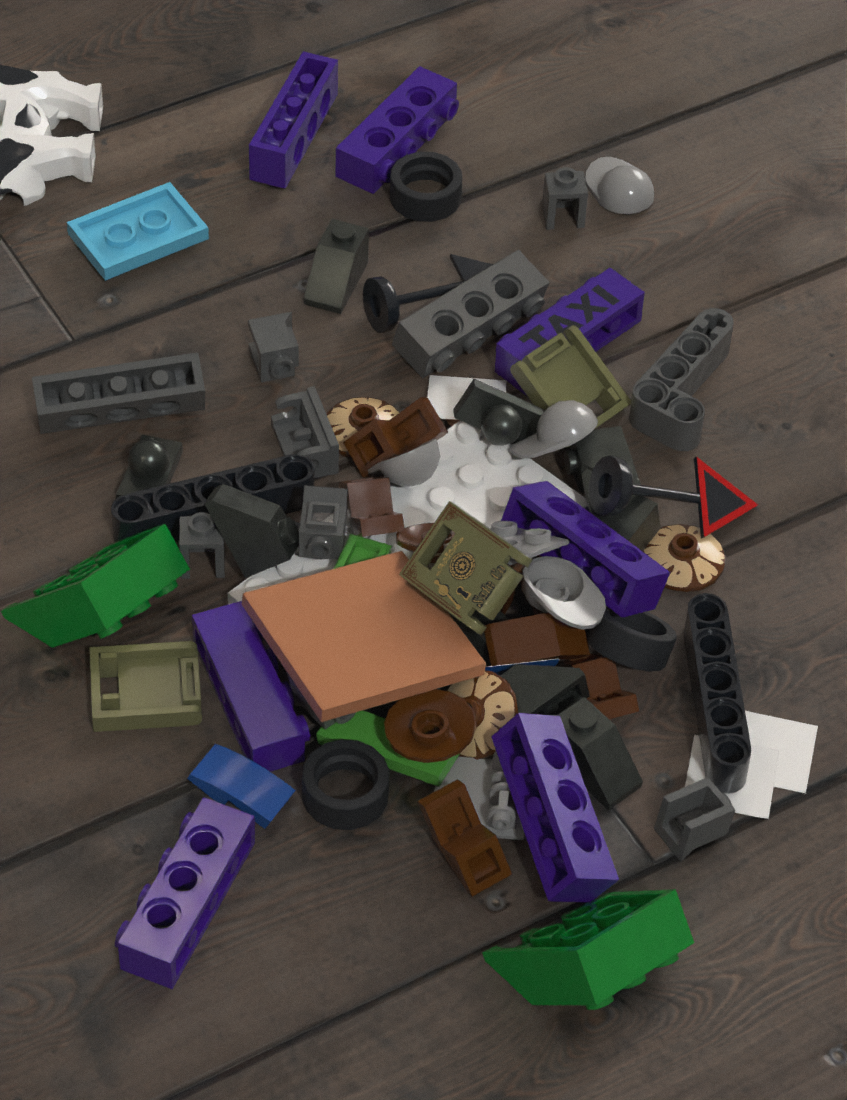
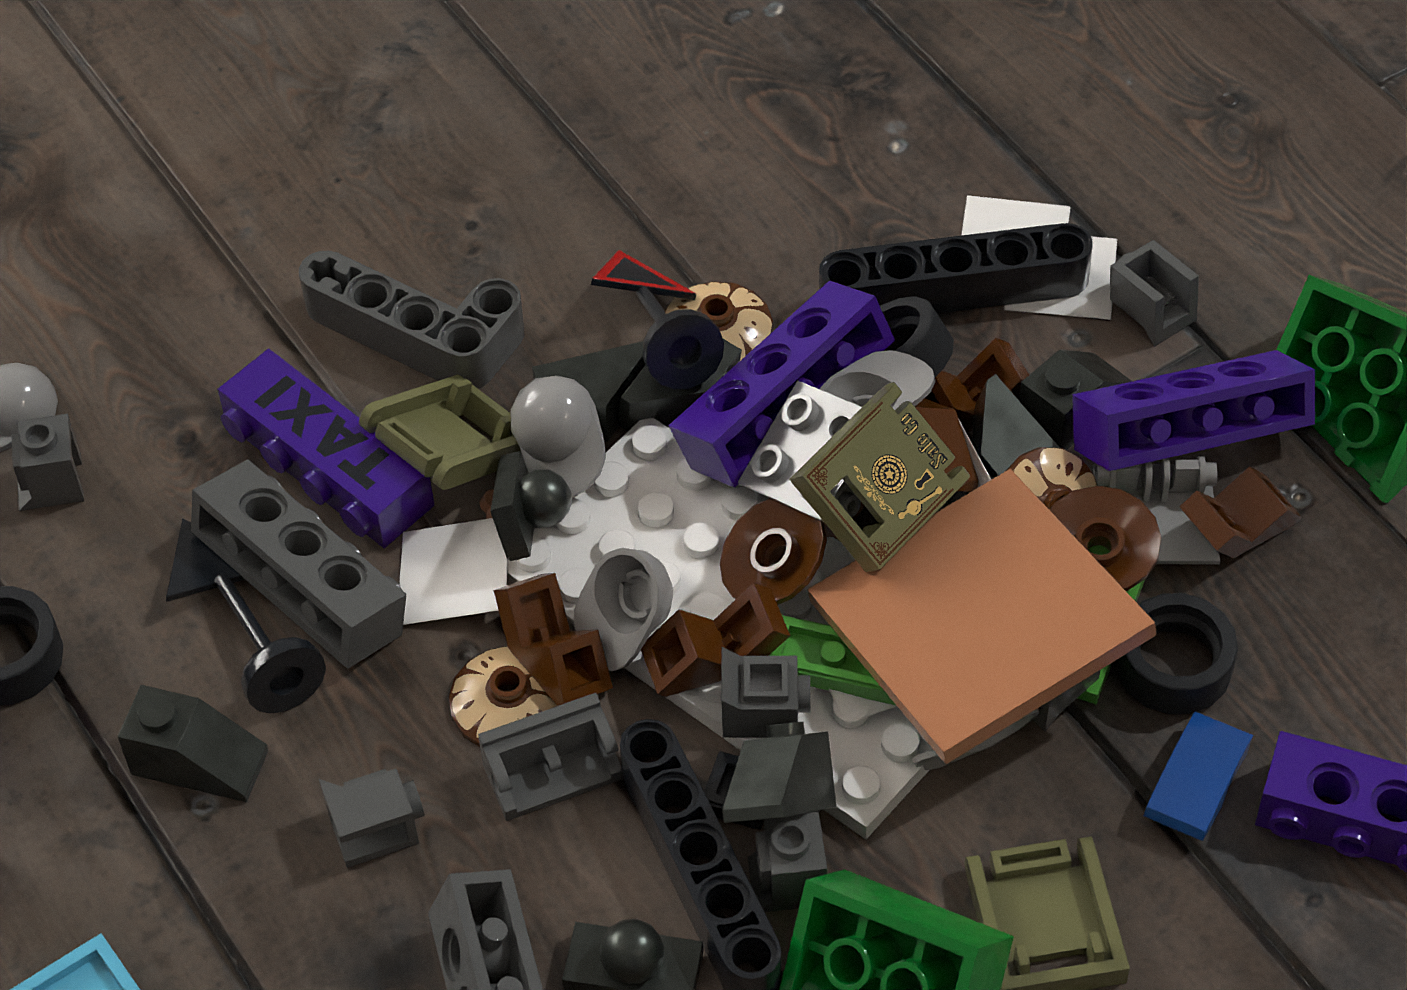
camera: 90 degrees left, 5 degrees up
(249, 687) = (1037, 778): dark purple brick -> none

